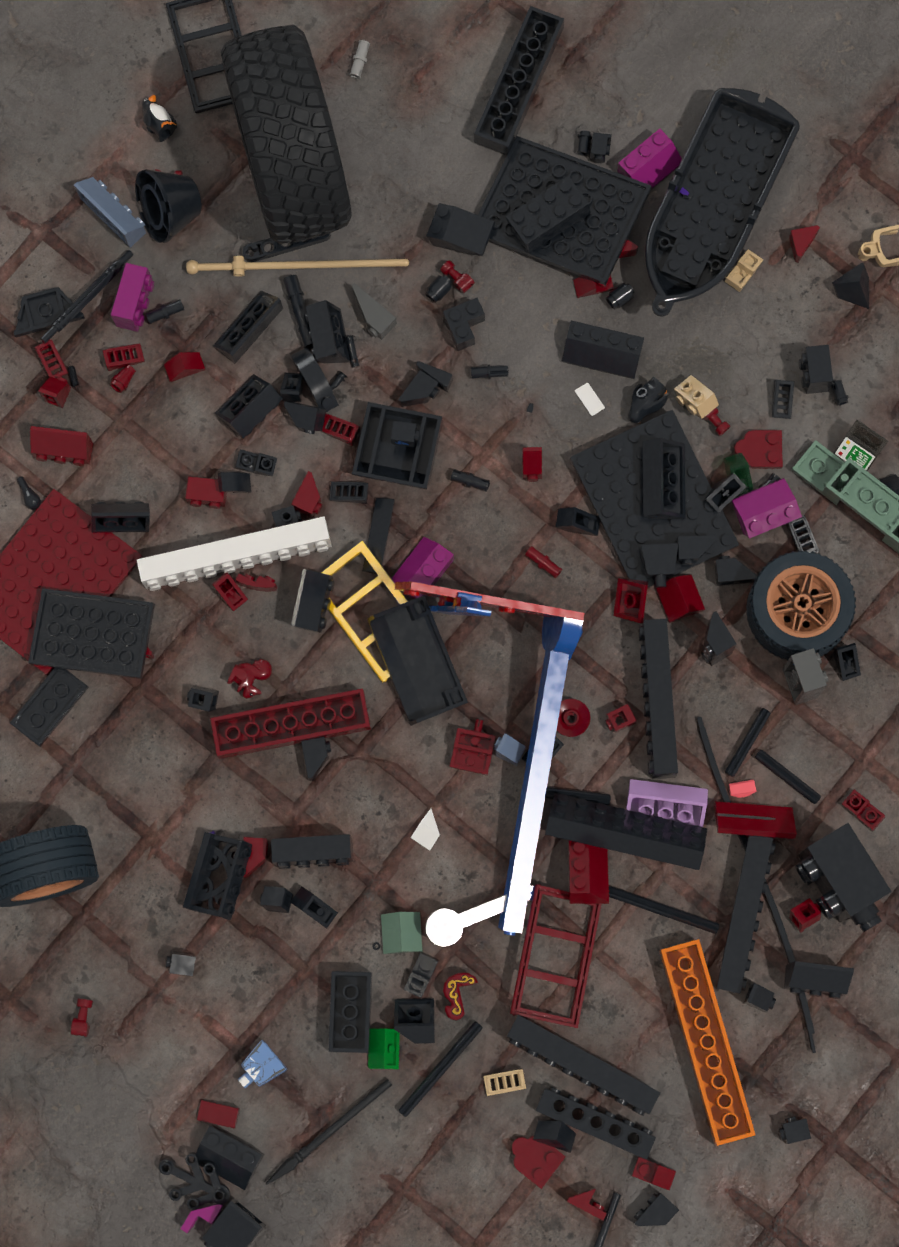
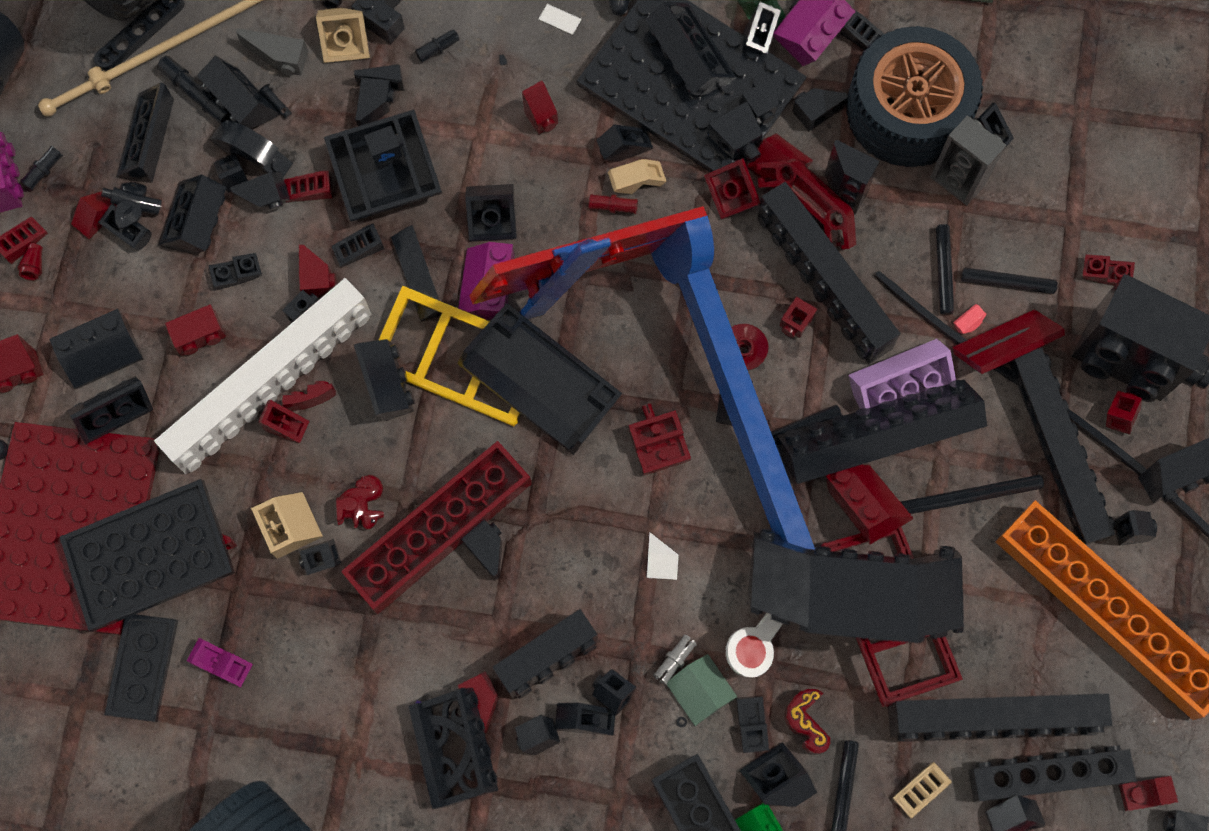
camera: 35 degrees left, 5 degrees down
(100, 731) = (219, 662): none -> magenta slope
(134, 467) = (96, 348): none -> black slope
(193, 663) = (286, 523): none -> tan slope
(198, 389) = (135, 235): none -> black brick
(212, 374) = (131, 203): none -> black plant
(234, 482) = (221, 301): black slope -> none
(339, 378) = (277, 136): black piece -> none
(342, 900) = (613, 691): none -> black brick
(395, 903) = (675, 659): none -> light grey pin
(425, 326) = (342, 34): none -> tan slope
(454, 520) = (491, 212): none -> black slope
(470, 480) = (483, 163): black pin -> none
(509, 749) = (699, 417): sand blue slope -> none
(534, 932) = (857, 592): none -> black windscreen
(572, 550) = (635, 174): none -> tan slope
(684, 640) = (815, 197): none -> dark red piece

